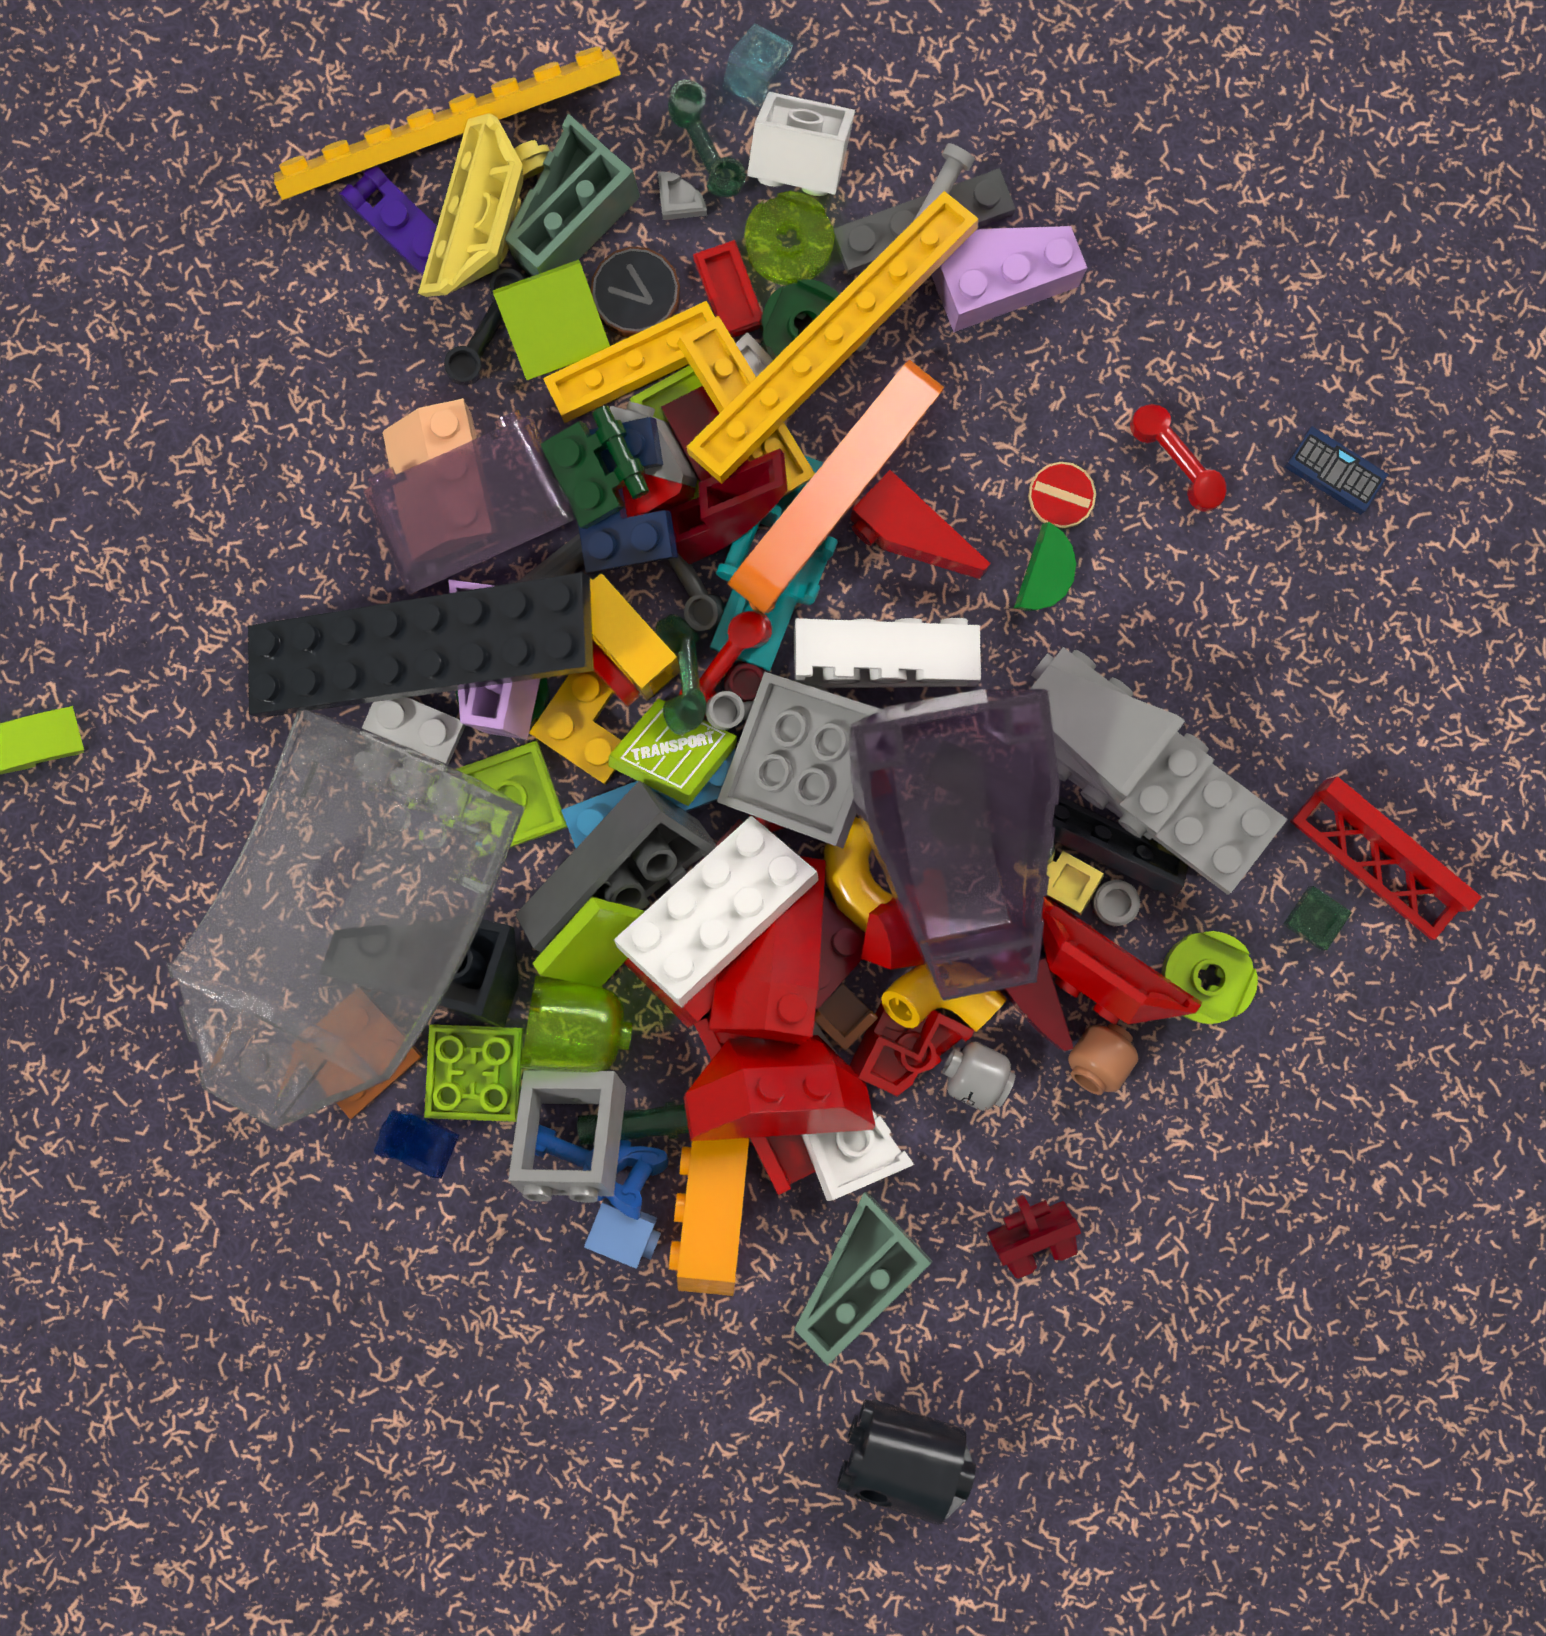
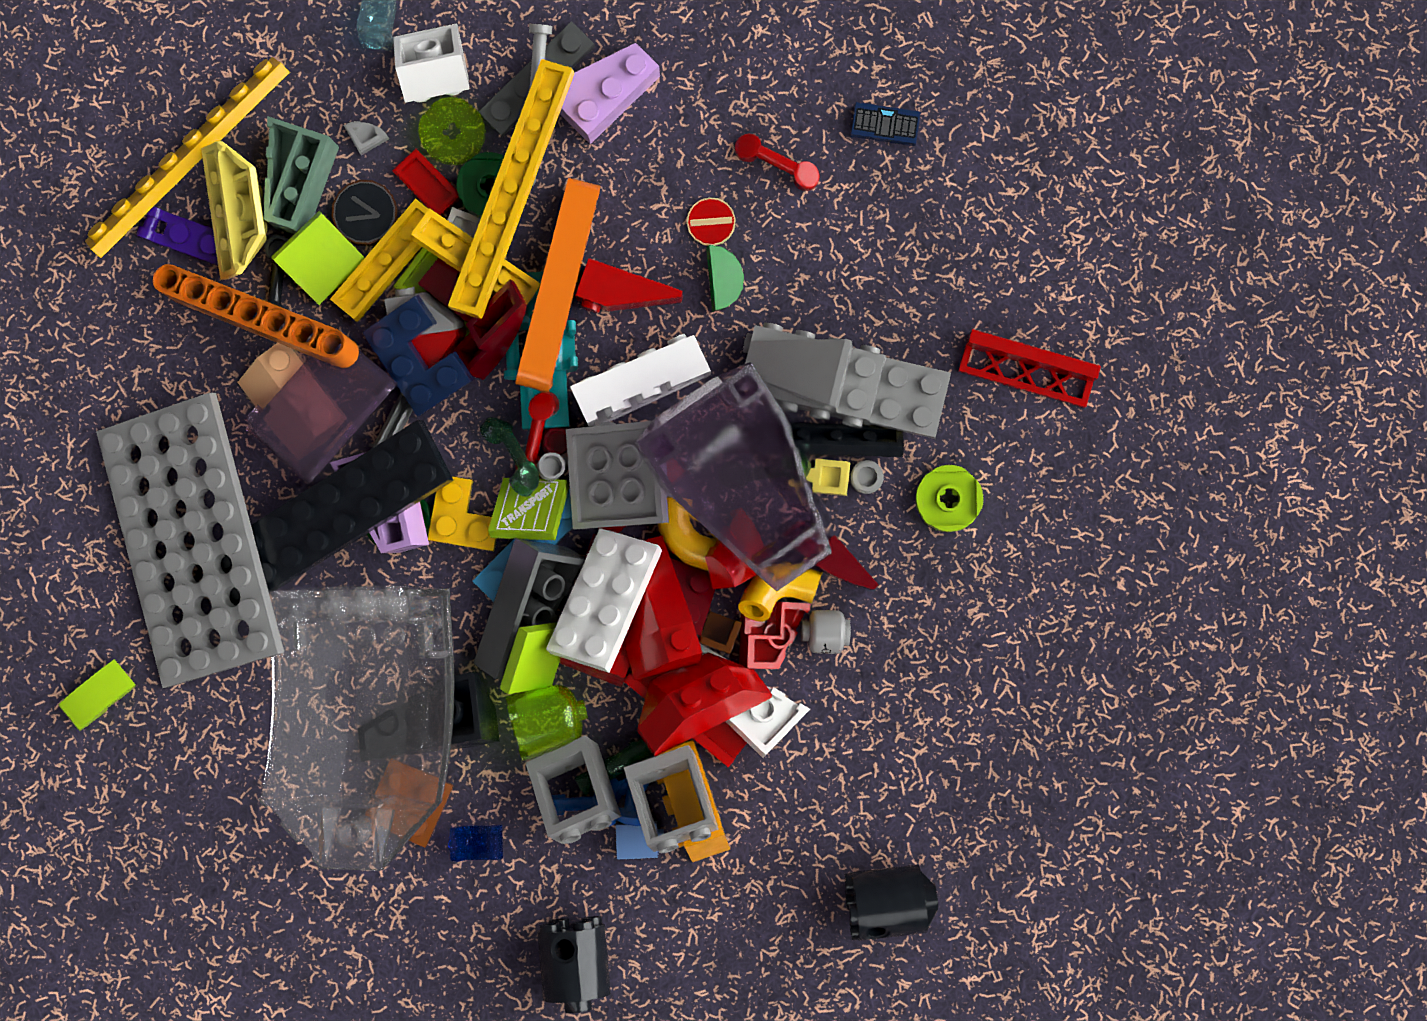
camera: 20 degrees left, 0 degrees up
(286, 628) = (142, 538): none -> light grey piece
(415, 727) = (350, 570): white plate -> none
(441, 355) = (266, 322): none -> orange beam
(470, 1355) = (576, 972): none -> black cylinder
(473, 1072) = (492, 780): lime tile -> none
(525, 779) = (438, 570): lime tile -> none
(532, 157) = (254, 153): light yellow plate -> none
(583, 473) = (387, 352): dark green plate -> none
(613, 677) = (468, 478): red tile -> none
(630, 640) = (467, 449): yellow window -> none
(685, 109) = (342, 73): clear green bar -> none
(688, 1157) = (661, 767): none -> light grey window
(703, 606) = (506, 405): dark grey bar -> none
(861, 1280) = (807, 799): sand green wedge -> none
(1033, 1230) = (905, 716): dark red hips -> none
(1103, 1058) = (902, 583): nougat head -> none
(1108, 973) = (877, 525): red wedge -> none
(1317, 918) = (1002, 427): clear green plate -> none

